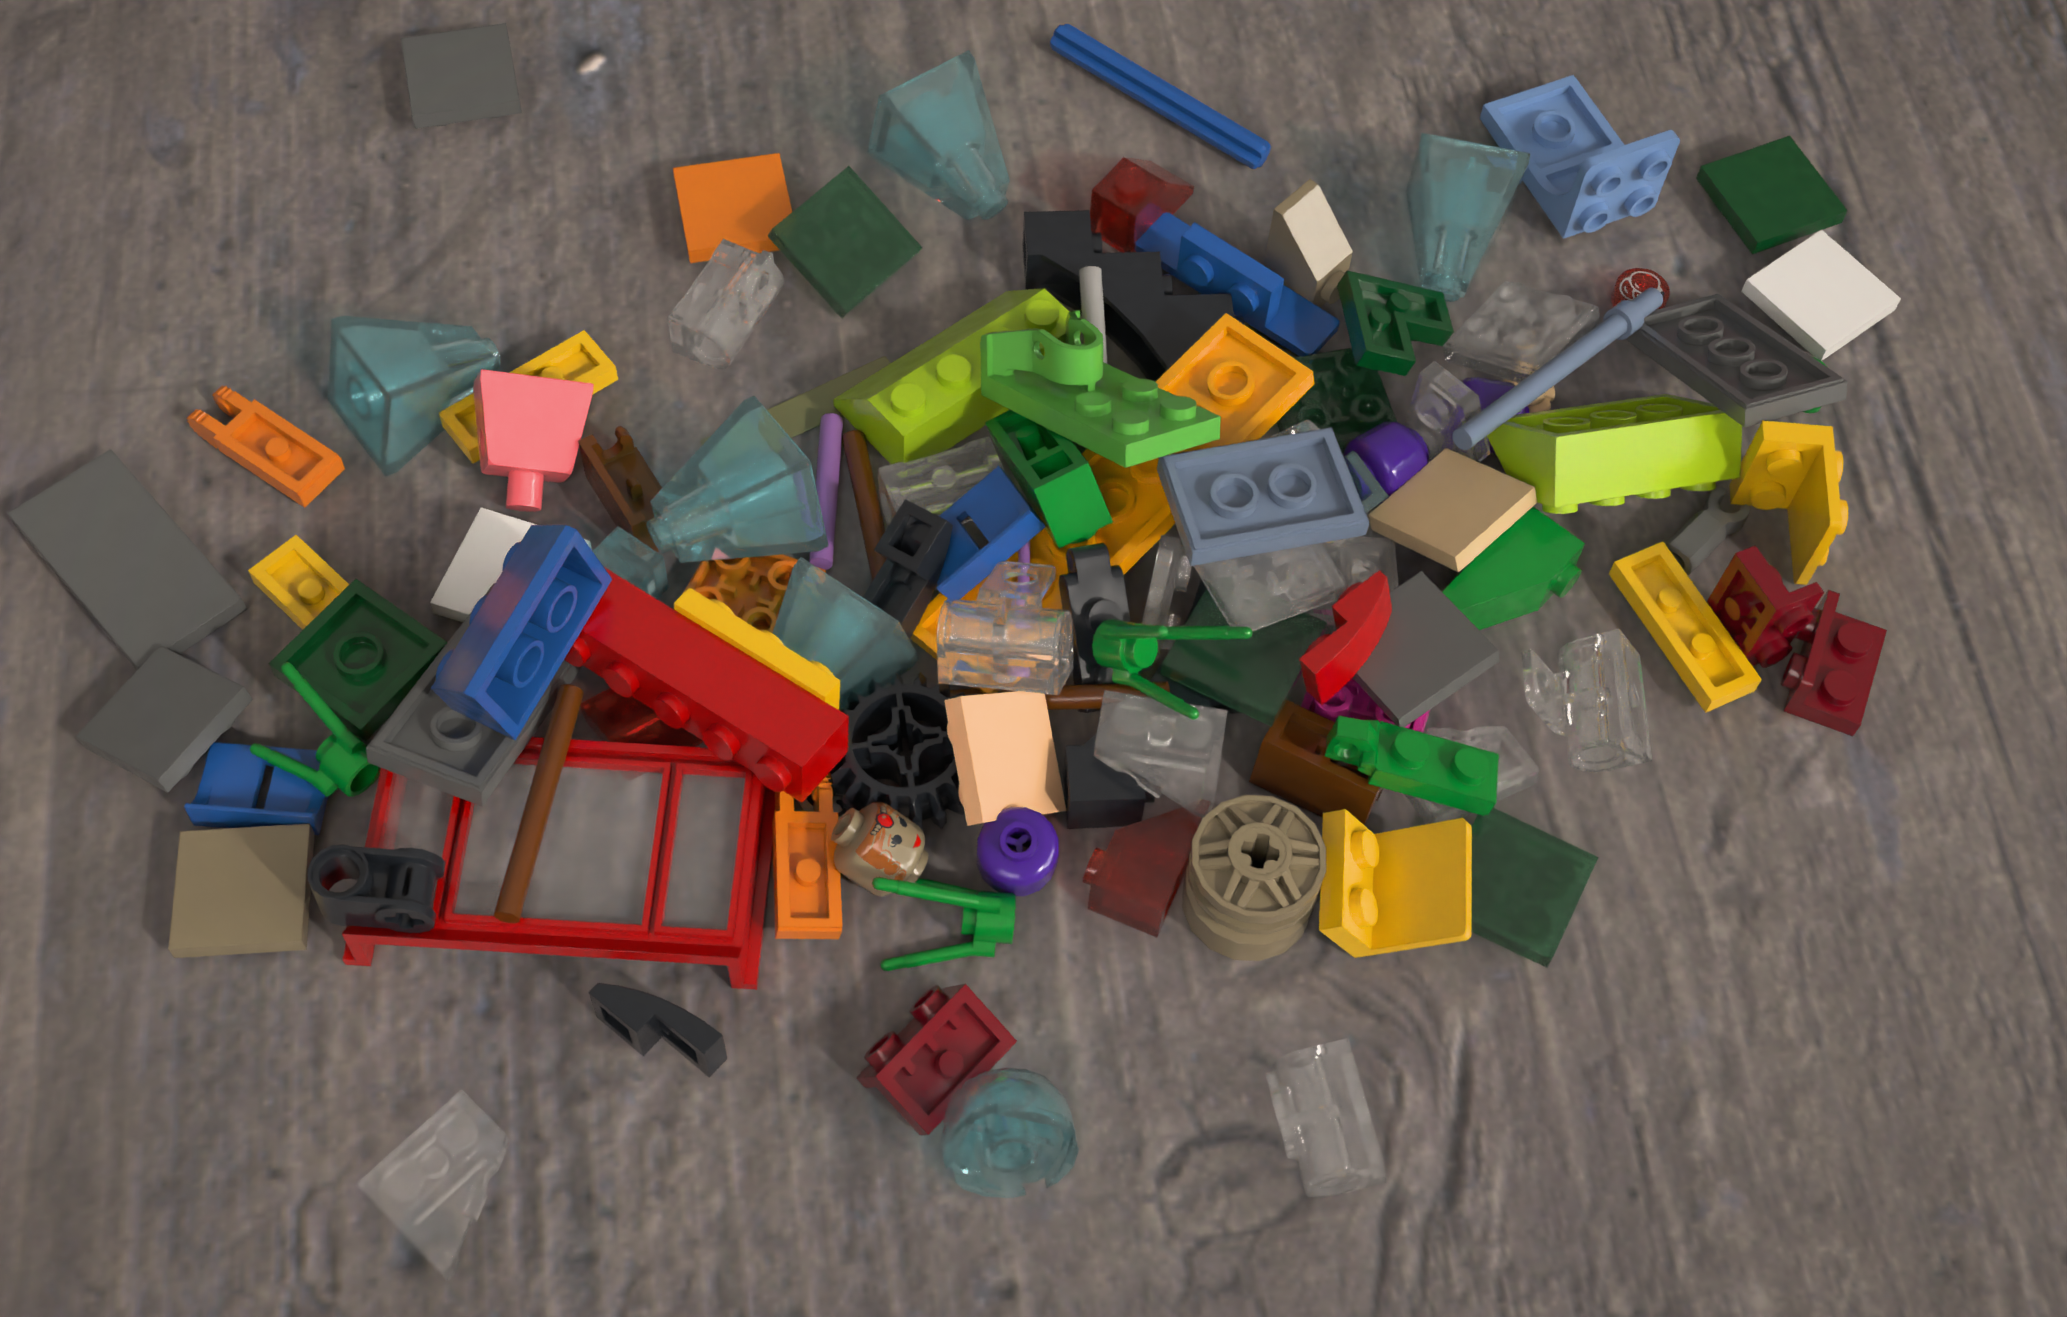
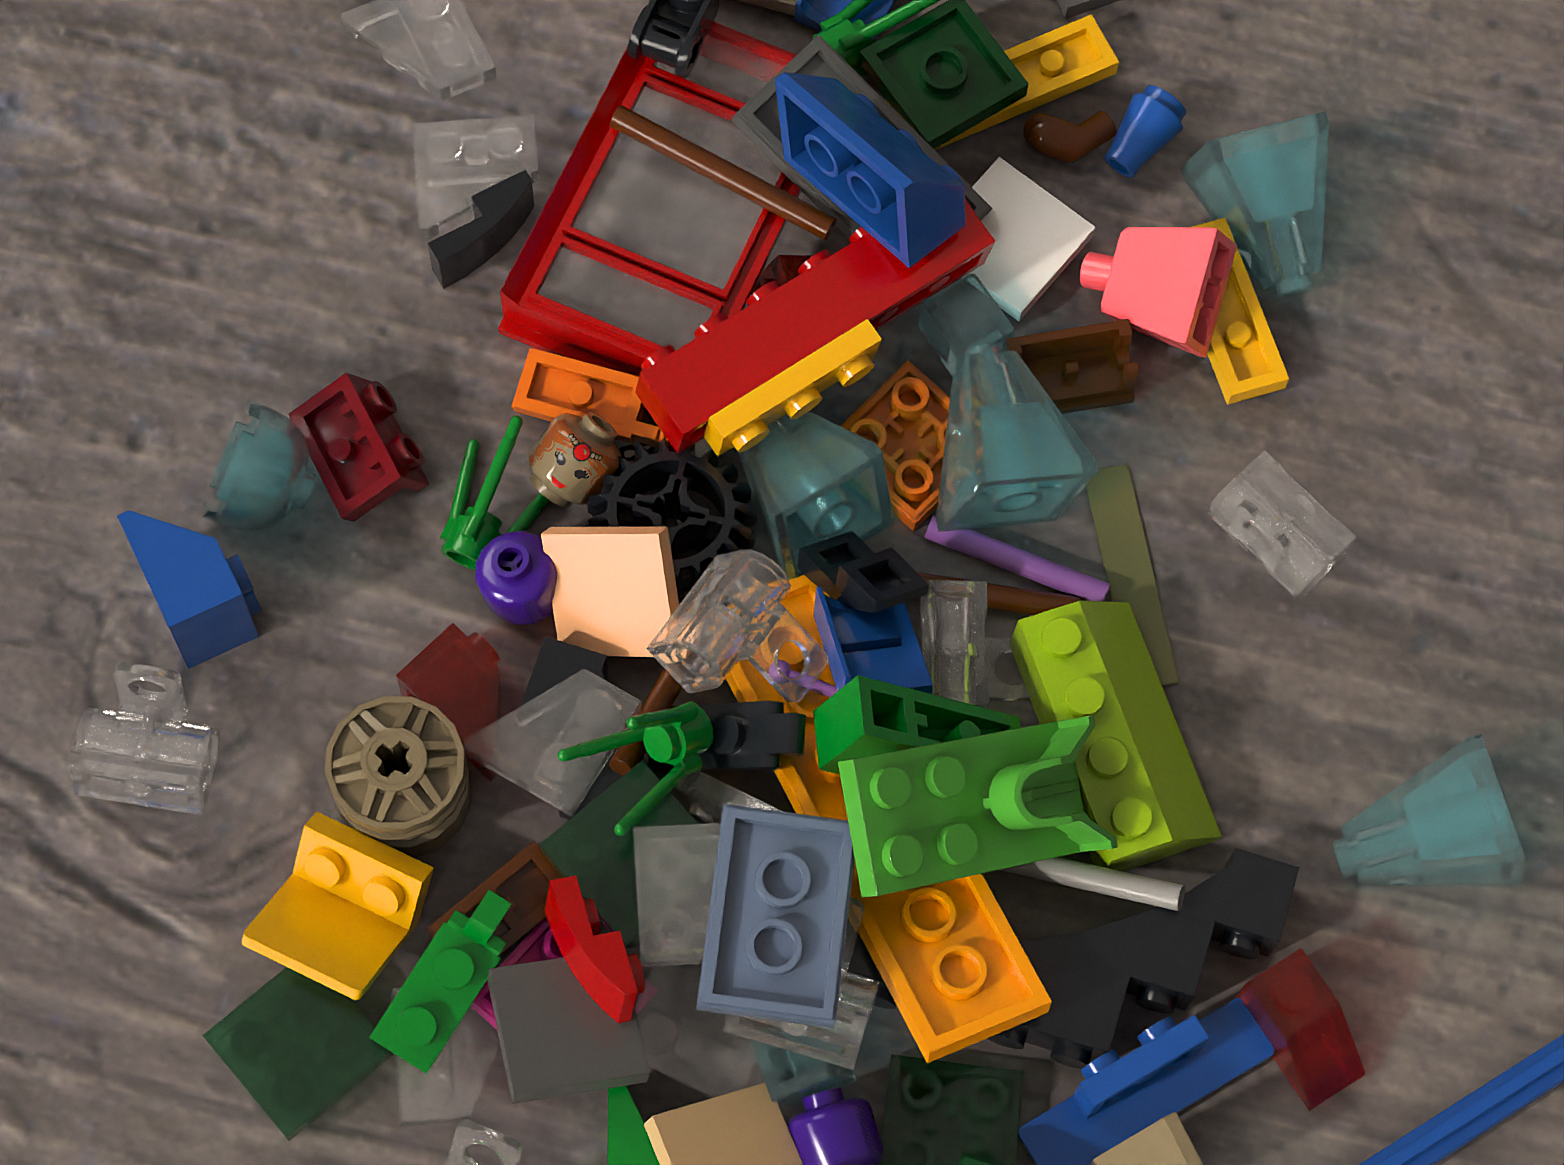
camera: 110 degrees right, 10 degrees up
(269, 446) = (1242, 66): orange hinge -> none
(360, 501) = (1145, 129): none -> blue cone
(388, 562) = (1065, 139): none -> reddish brown arm
(586, 1078) = (464, 159): none -> clear wing
(731, 202) = (1420, 582): orange tile -> none
(845, 241) = (1325, 671): clear green tile -> none
(1162, 1125) = (195, 586): none -> blue slope

